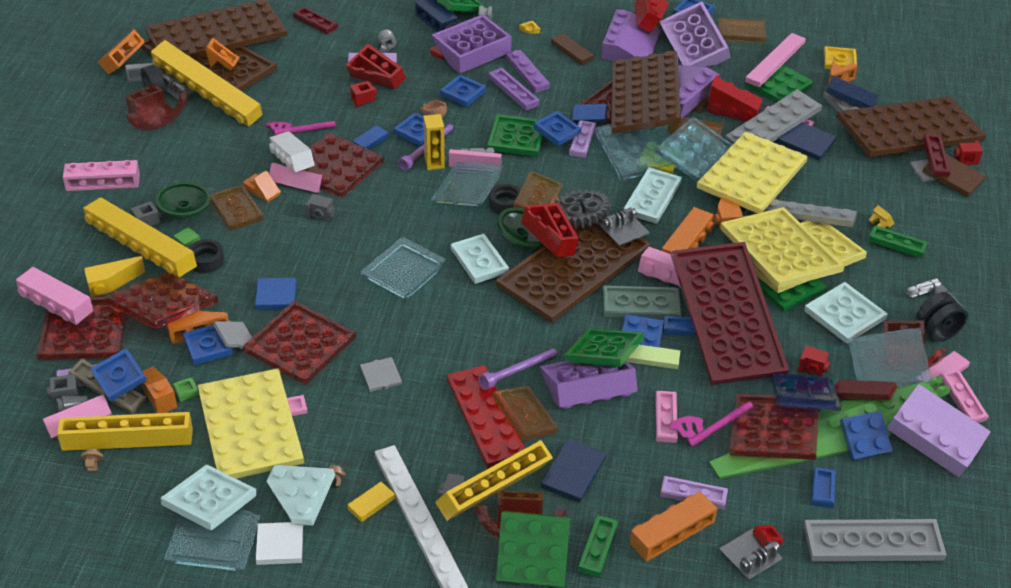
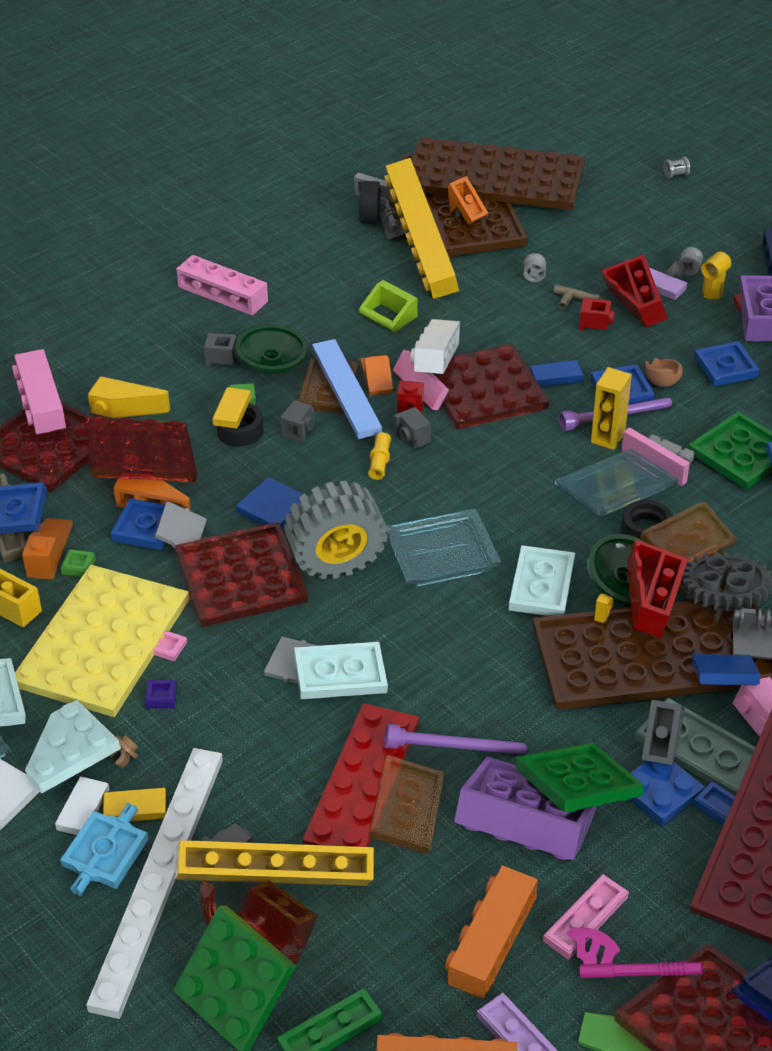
camera: 40 degrees right, 0 degrees up
(121, 52) = (370, 156): orange slope -> none
(140, 237) = (185, 371): yellow brick -> none
(149, 109) = (341, 233): clear red piece -> none
(196, 242) = (232, 407): none -> yellow tile
(229, 136) = (394, 299): none -> lime tile
(243, 237) = (297, 421): none -> dark grey brick
(255, 203) = (346, 389): none -> light blue tile
(289, 127) = (473, 322): dark pink piece -> none
(297, 80) = (530, 271): none -> light grey wheel
(301, 191) = (410, 395): none -> red brick
(314, 233) = (379, 456): none -> yellow pin
(315, 20) = (628, 205): dark red tile -> none
(321, 434) = (160, 694): none -> dark purple tile
(333, 87) = (569, 293): none -> dark tan piece
(340, 520) = (84, 799): none -> white tile
(346, 284) = (335, 530): none -> light grey wheel
(381, 533) = (104, 849): none -> medium azure plate
(413, 41) = (714, 275): none -> yellow piece
(416, 363) = (340, 670): none -> light aqua plate
(531, 254) = (603, 607): none -> yellow tile
(573, 470) = (398, 913): dark blue tile -> none
(624, 301) = (663, 732): none -> dark grey slope
(626, 253) = (725, 669): none -> blue tile
(631, 449) = (491, 932): none -> orange brick
(655, 356) = (646, 827): yellowish green tile -> none

